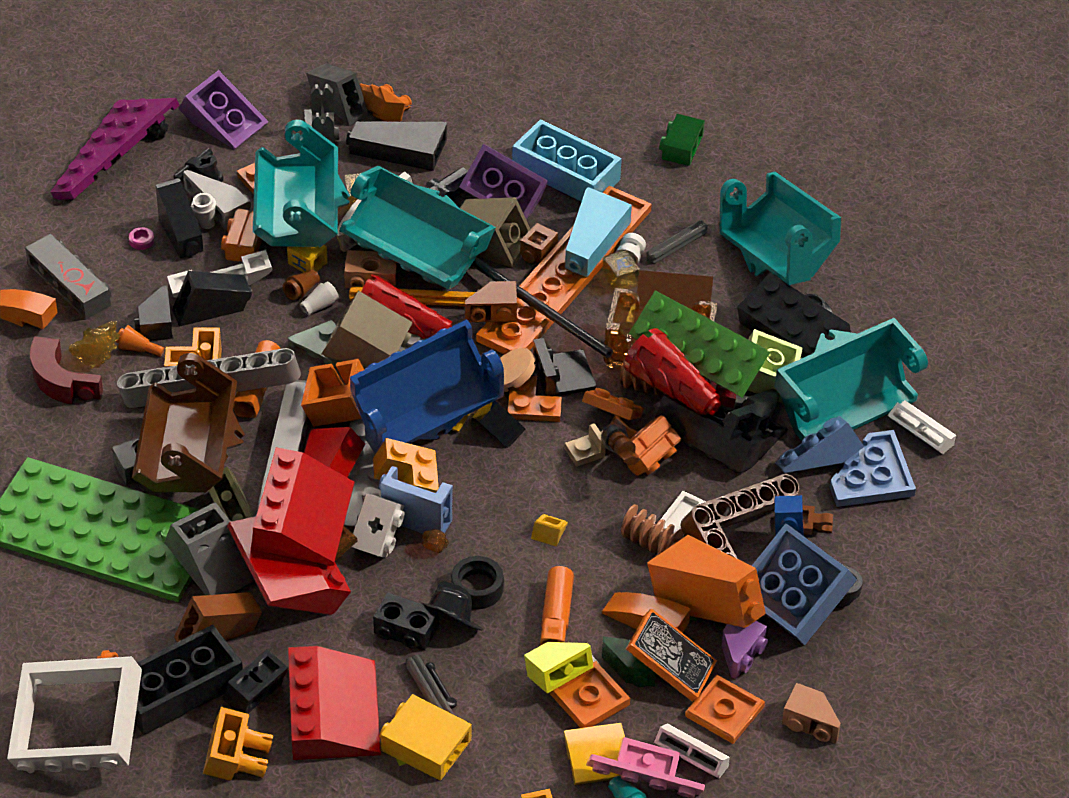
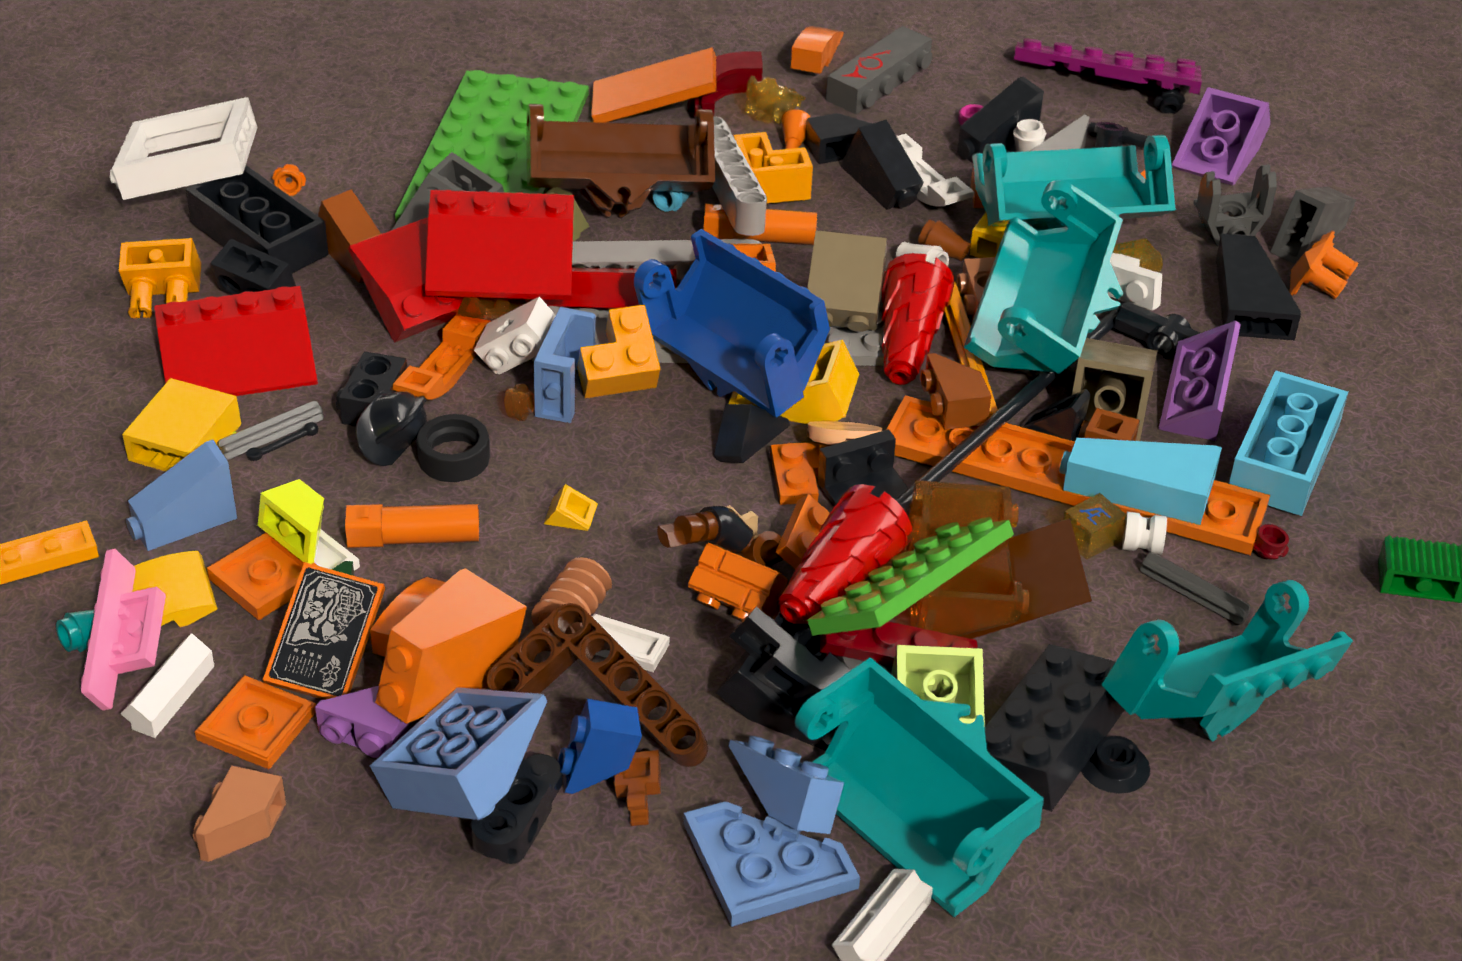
camera: 80 degrees right, 5 degrees down
(59, 410) = (654, 86): none -> orange tile
(377, 582) = (447, 361): none -> orange slope
(517, 730) = (184, 499): none -> medium blue slope
(520, 260) = (1060, 418): none -> black slope
(647, 195) = (1271, 542): none -> dark red plate

